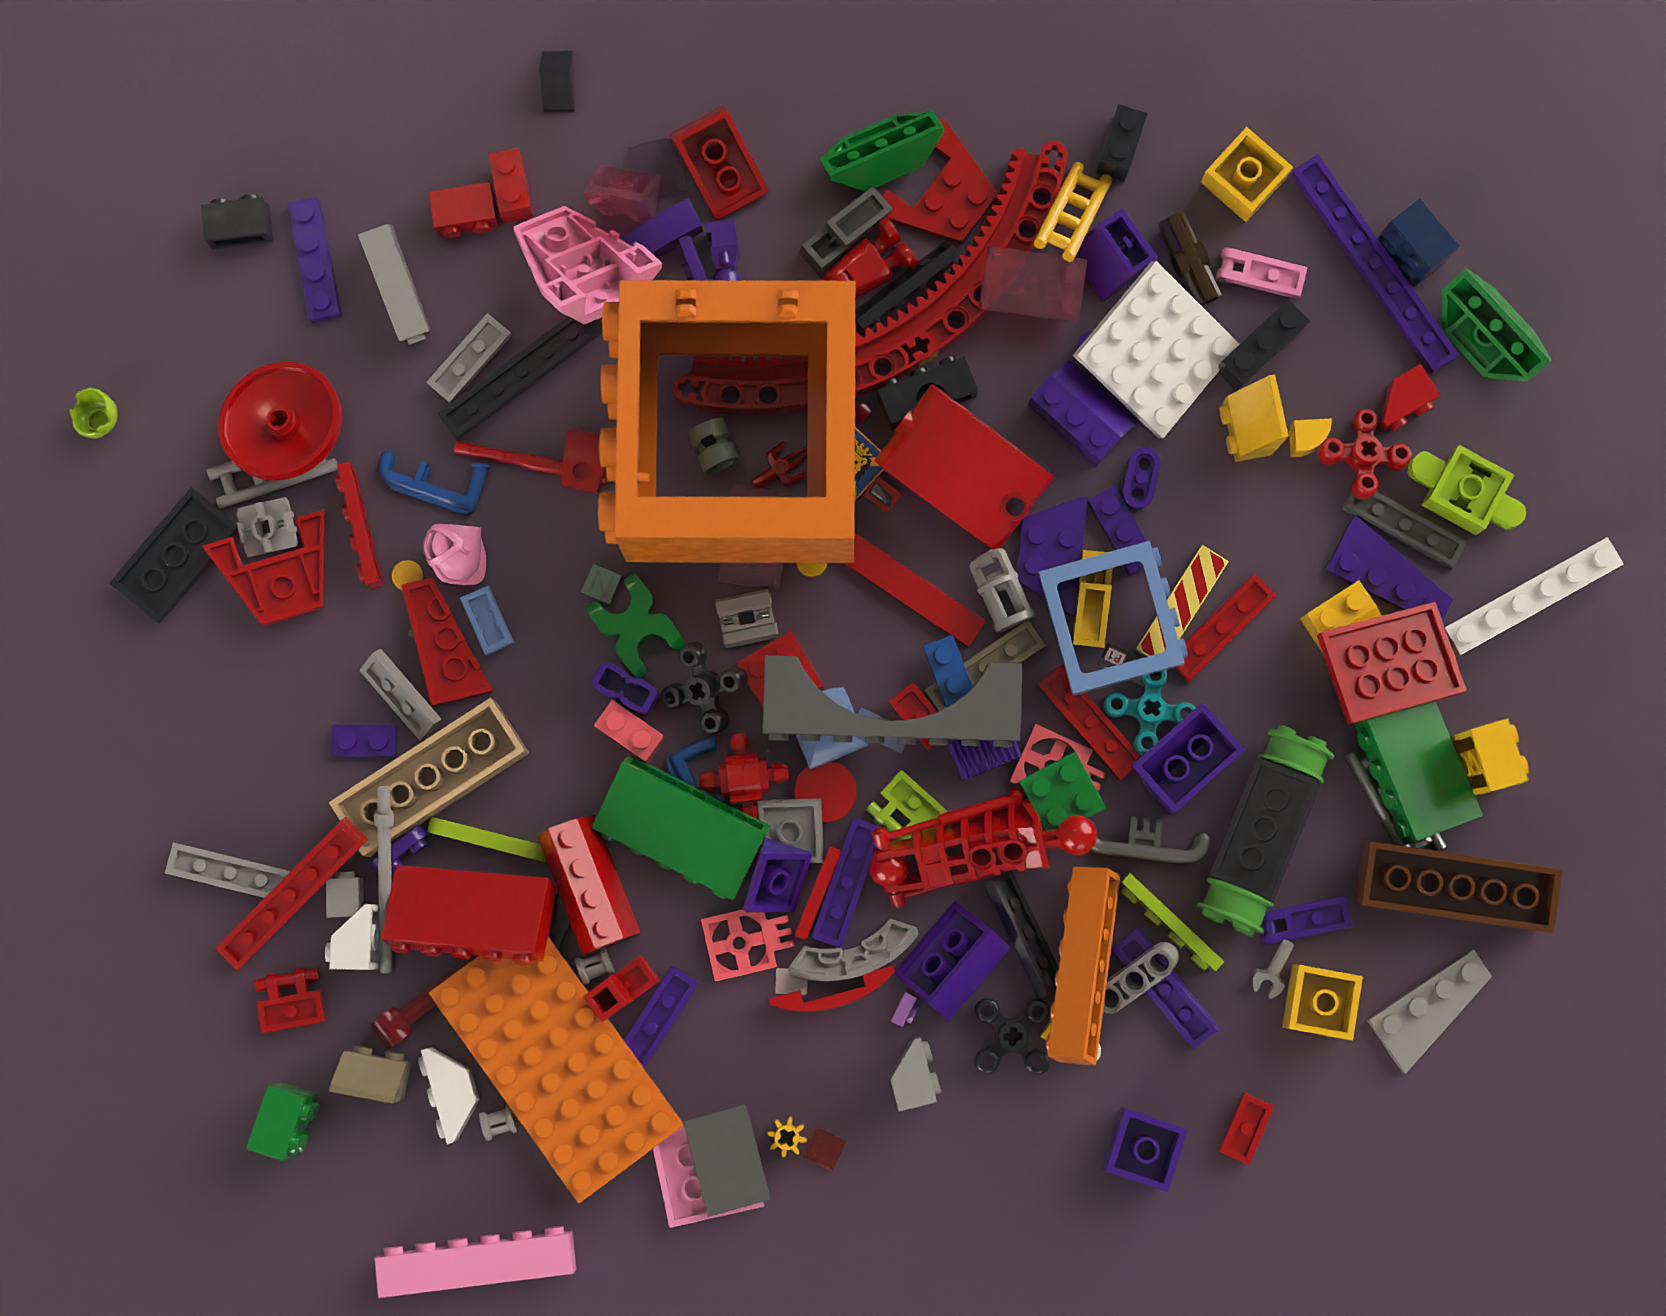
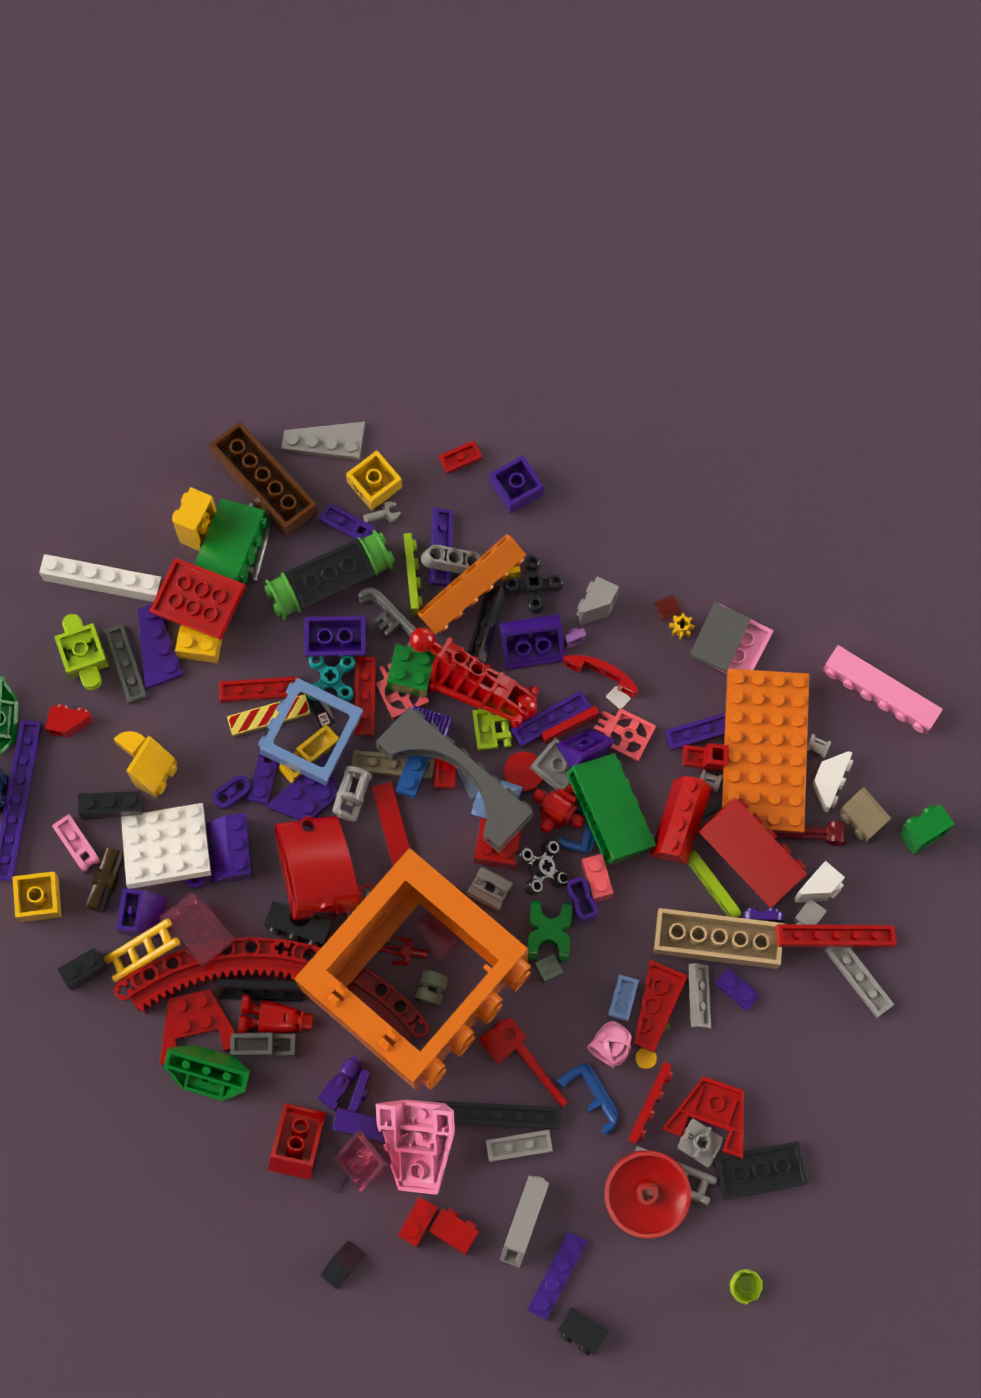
camera: 140 degrees left, 10 degrees down
(292, 1010) = (882, 884): red plate -> none
(384, 821) = (760, 927): light grey bar -> none
(841, 964) = (578, 676): light grey tile -> none
(1369, 445) = (108, 706): red gear -> none

